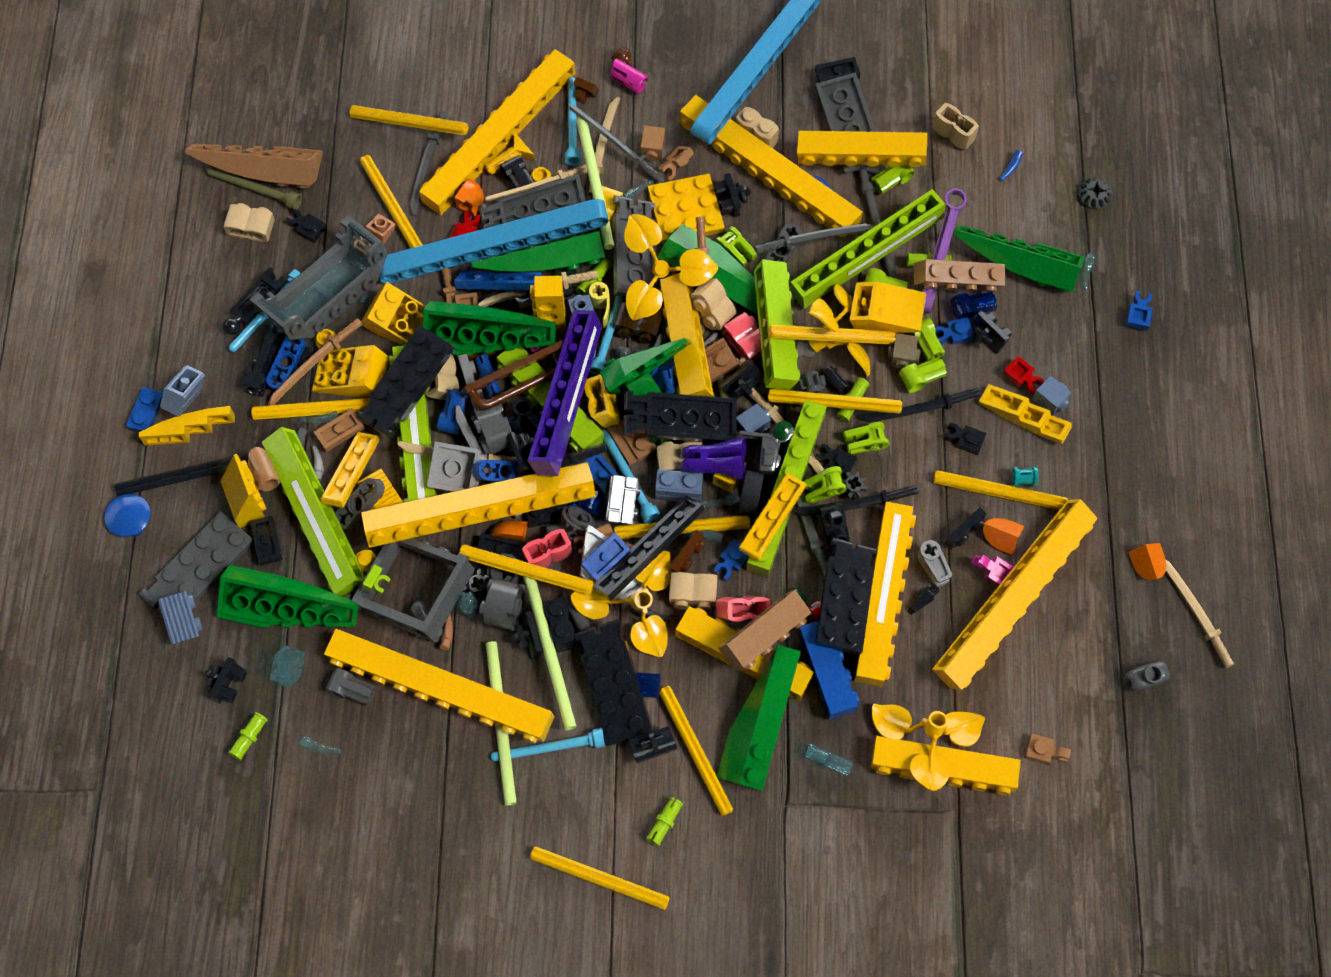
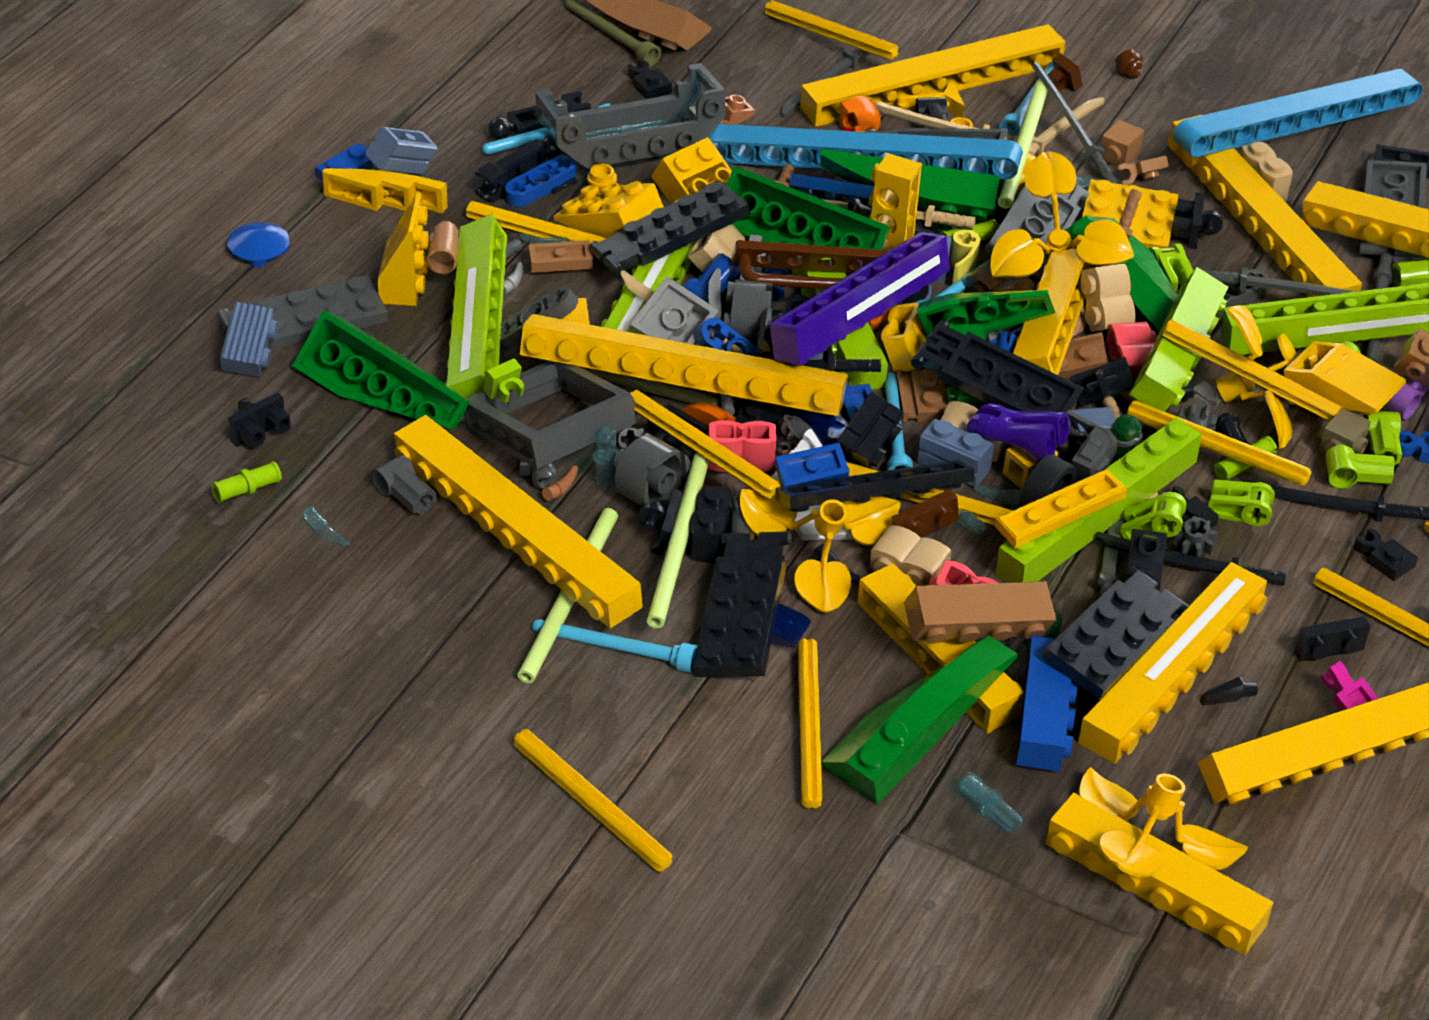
camera: 25 degrees right, 25 degrees down
(175, 476) = (328, 227): black axle -> none
(249, 222) = (582, 53): tan brick -> none
(266, 540) = (402, 319): black plate -> none
(287, 666) = (341, 432): clear light blue brick -> none
(314, 359) = (607, 175): medium nougat sword -> none
(350, 469) = (530, 290): yellow tile -> none
(390, 201) = (761, 85): yellow axle -> none
(628, 76) = (1127, 81): dark pink arm -> none
(652, 744) = (754, 685): black hips -> none
(664, 821) = (718, 775): lime pin -> none
(732, 559) = (980, 552): blue plate -> none
(936, 565) = (1265, 656): light grey piece -> none
(1002, 534) = (1383, 666): orange brick -> none
(1042, 750) = (1319, 921): medium nougat plate -> none

